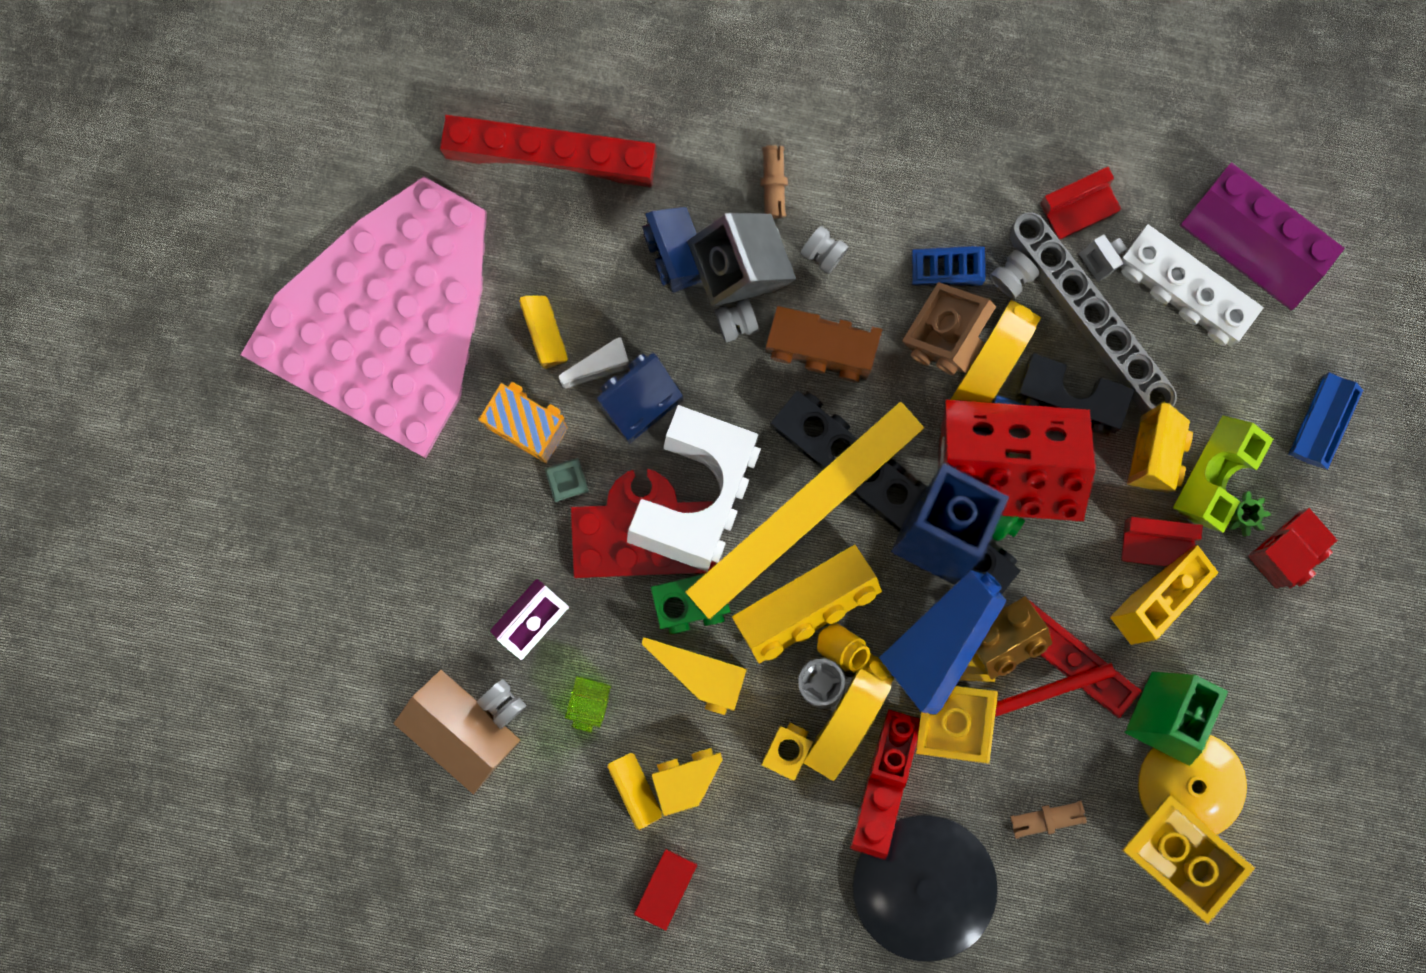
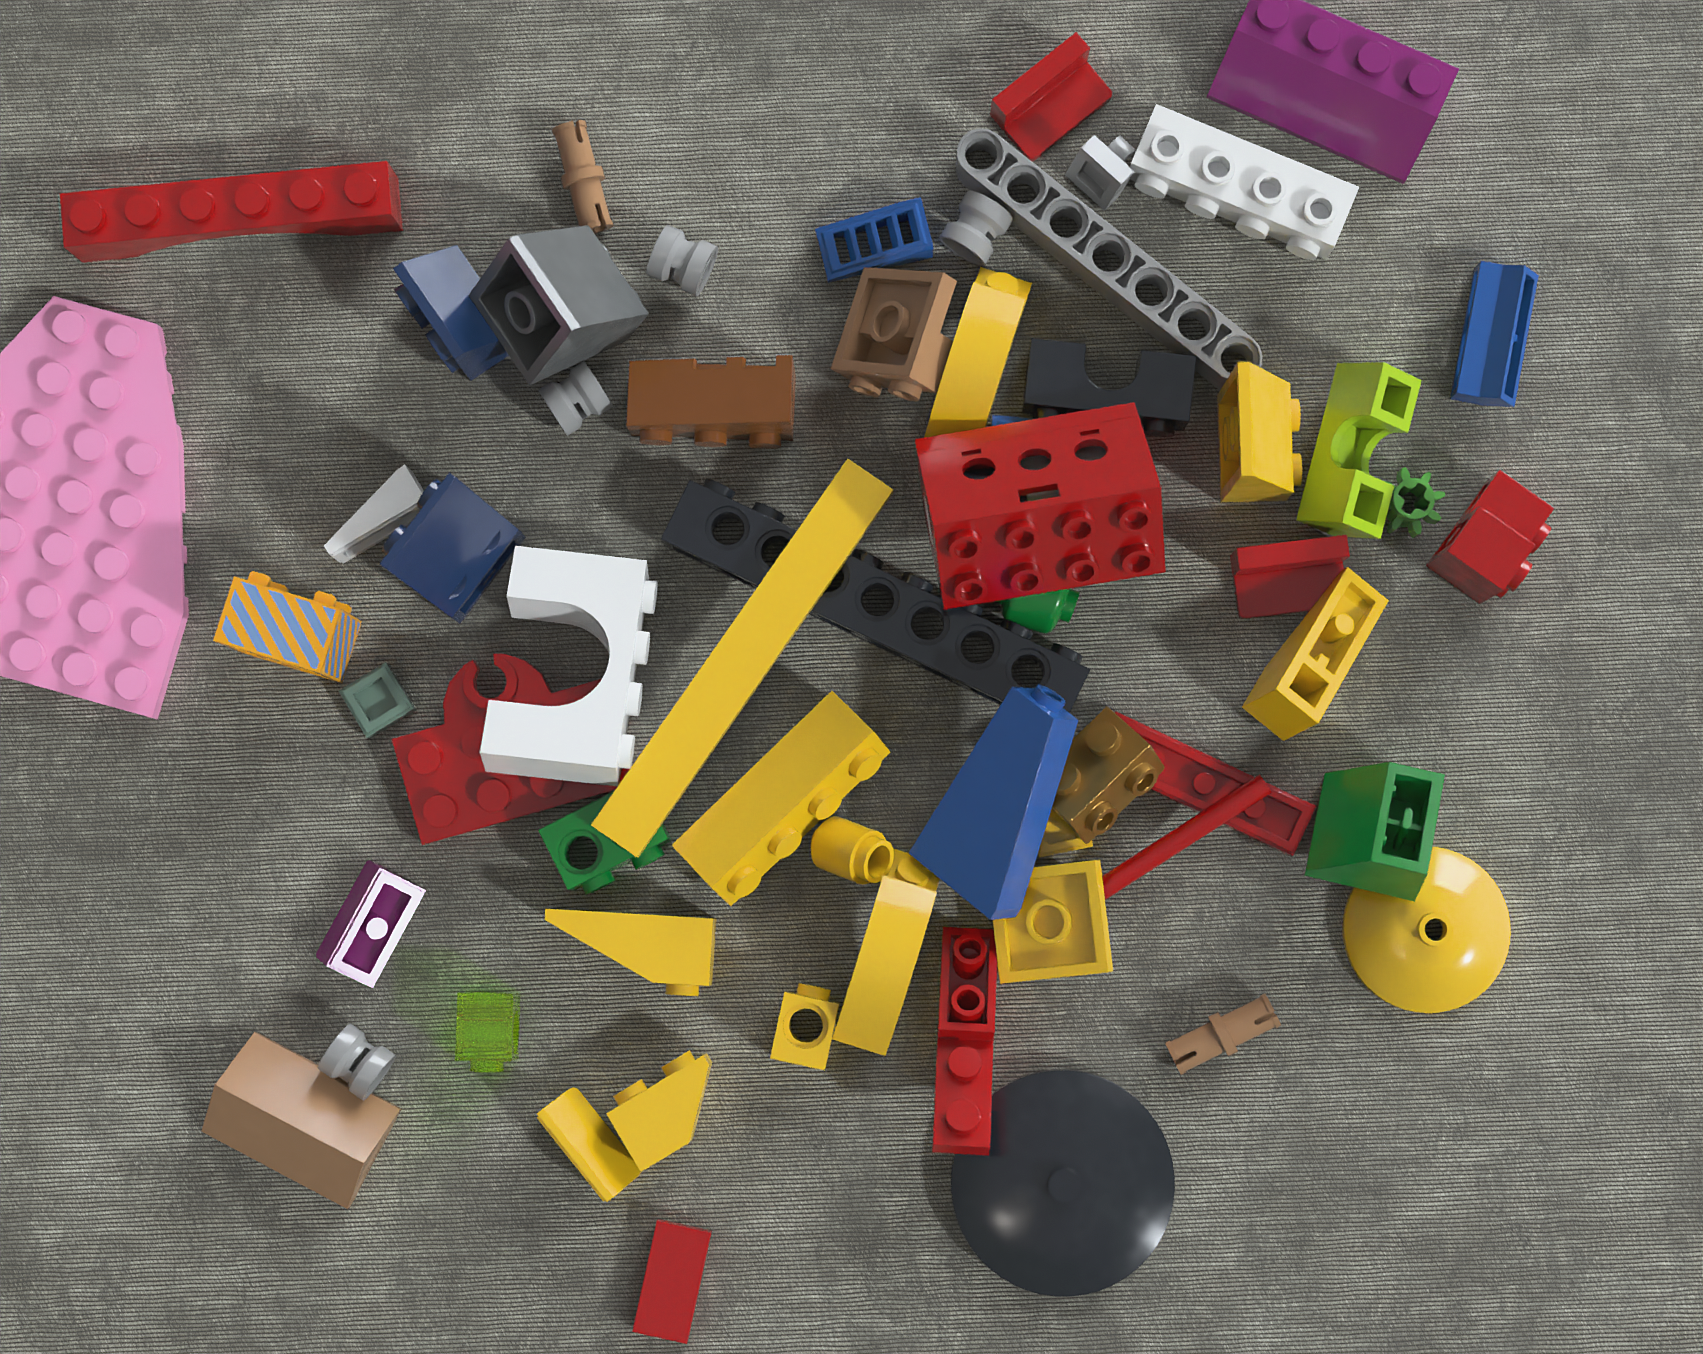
camera: 10 degrees left, 0 degrees up
(543, 330) = (288, 484): yellow slope -> none
(822, 683) = (832, 912): light grey wheel -> none
(950, 525) = (964, 625): dark blue slope -> none
(1188, 859) = (1446, 1042): yellow slope -> none

